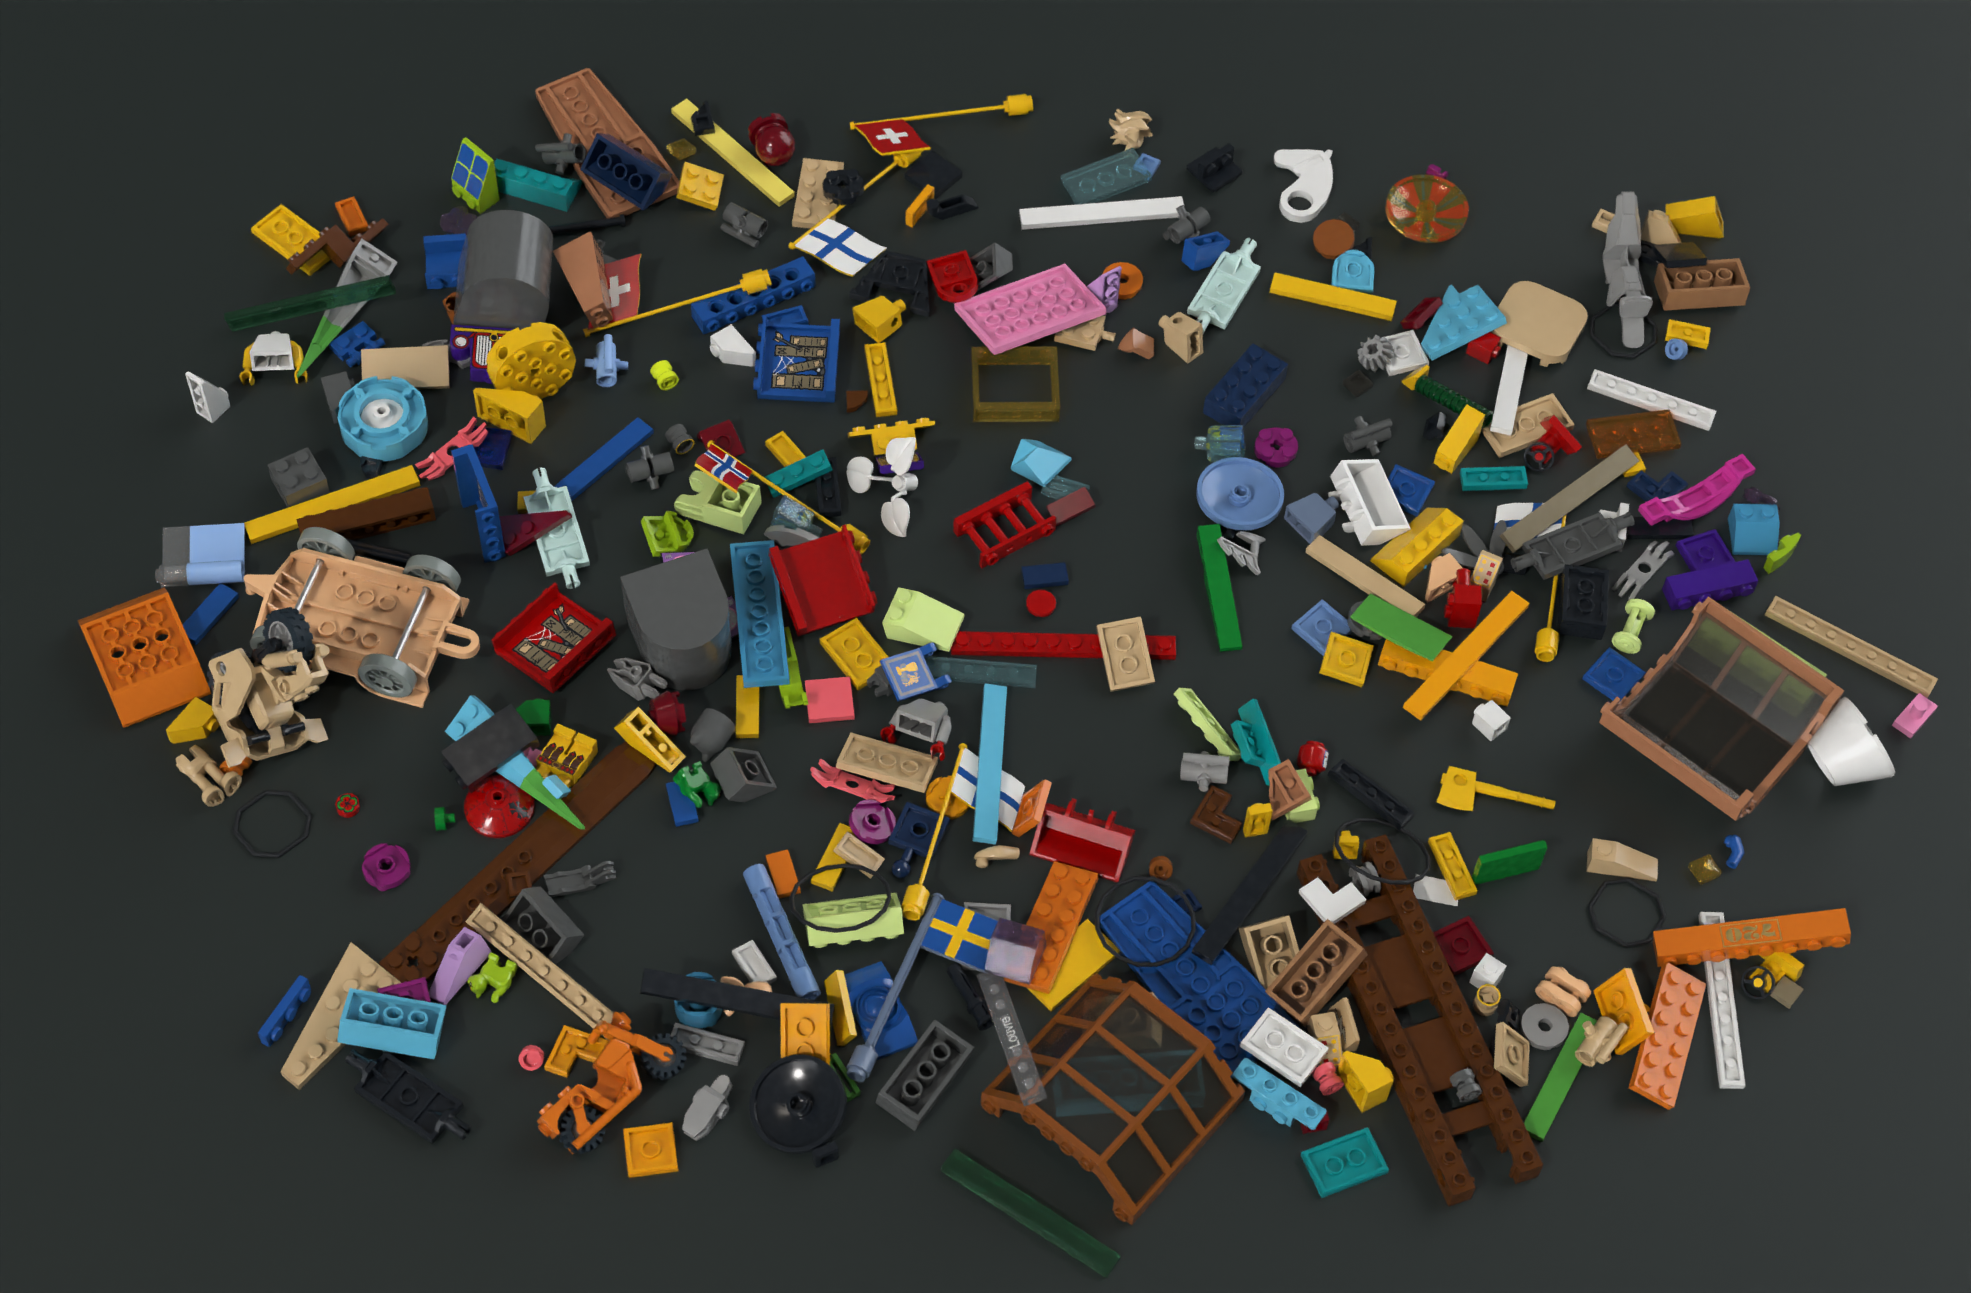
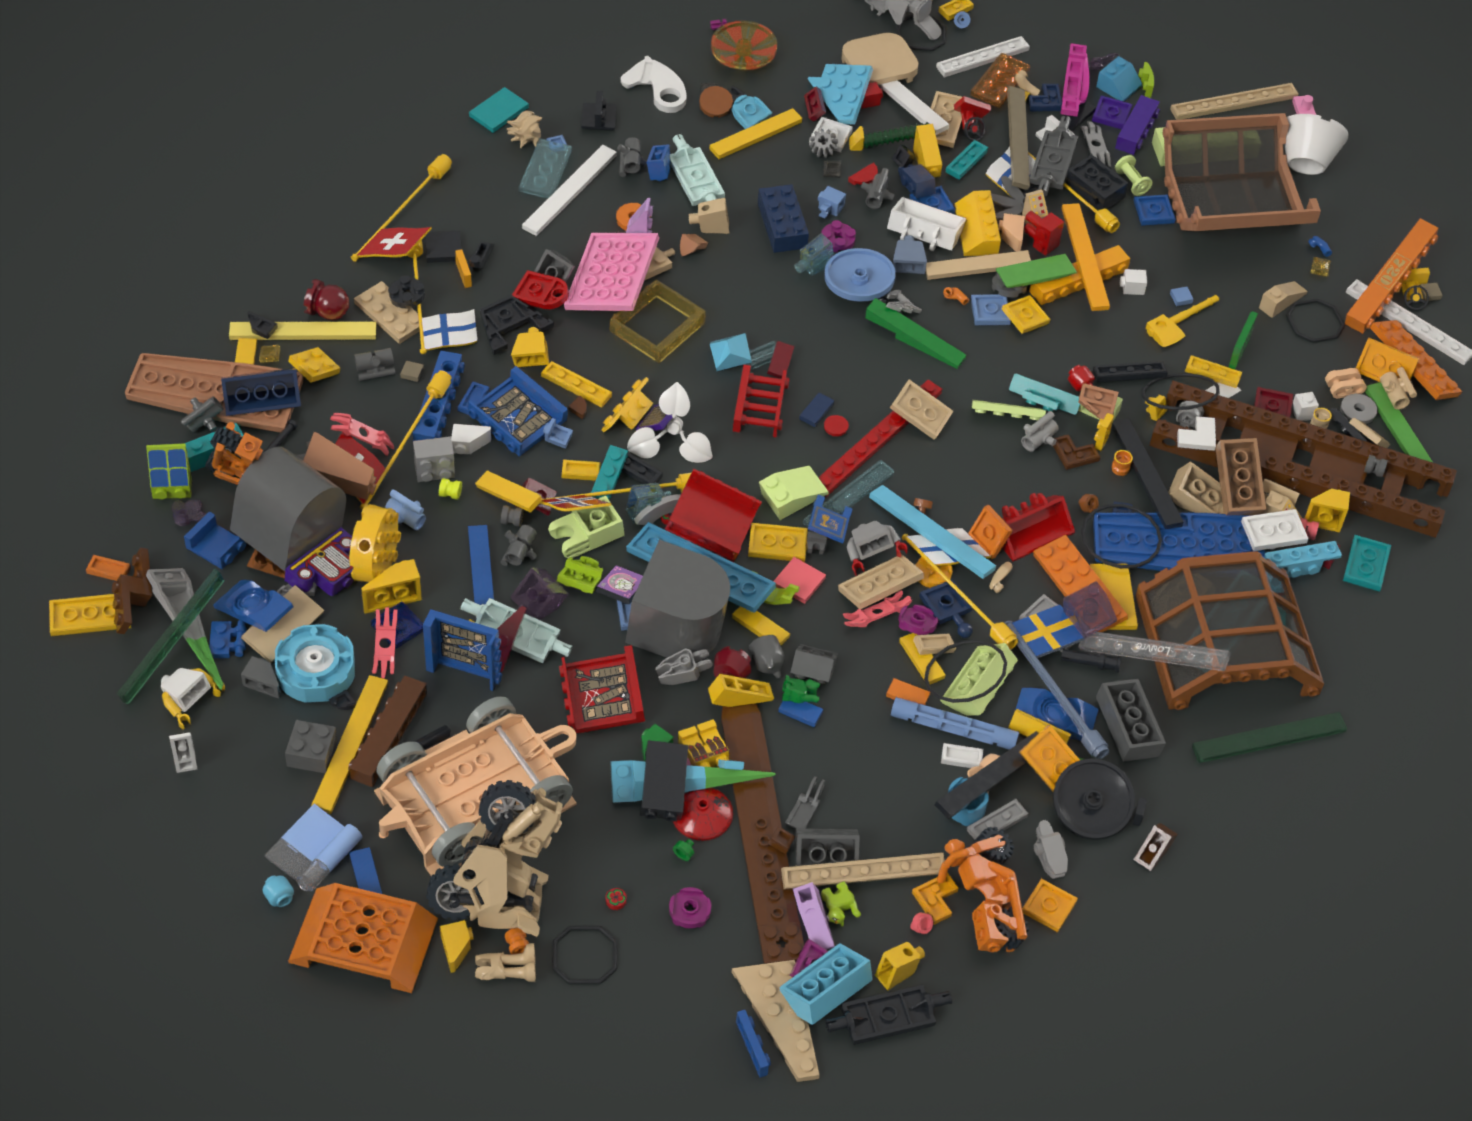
camera: 50 degrees left, 5 degrees down
(136, 563) = (278, 891): none -> medium azure head
(400, 334) = (254, 605): none -> blue slope
(466, 1067) = (898, 964): none -> yellow torso
(507, 190) = (232, 453): none -> orange piece
(614, 519) = (539, 593): none -> clear purple slope
(649, 257) = (351, 427): none -> coral piece
(667, 133) = (246, 350): none -> yellow tile
(677, 339) = (434, 459): none -> light grey brick
(699, 416) = (509, 491): none -> yellow tile
(768, 256) = (412, 371): none -> dark tan tile
(798, 1194) = (1155, 846): none -> slope
(803, 404) = (557, 434): none -> medium blue bracket
(1015, 734) = (923, 504): none -> dark orange tile
(1138, 95) = (498, 109): none -> teal tile
(1243, 857) = (1122, 462): none -> orange wheel
(1309, 585) = (956, 294): none -> orange arm
(1310, 410) = (831, 202): none -> medium blue brick
(1376, 413) = (865, 175): none -> red tile
(1413, 457) = (917, 180): none -> dark blue hinge
(1522, 773) = (1181, 296): none -> medium blue tile
(1649, 458) = (1024, 84): none -> tan arm

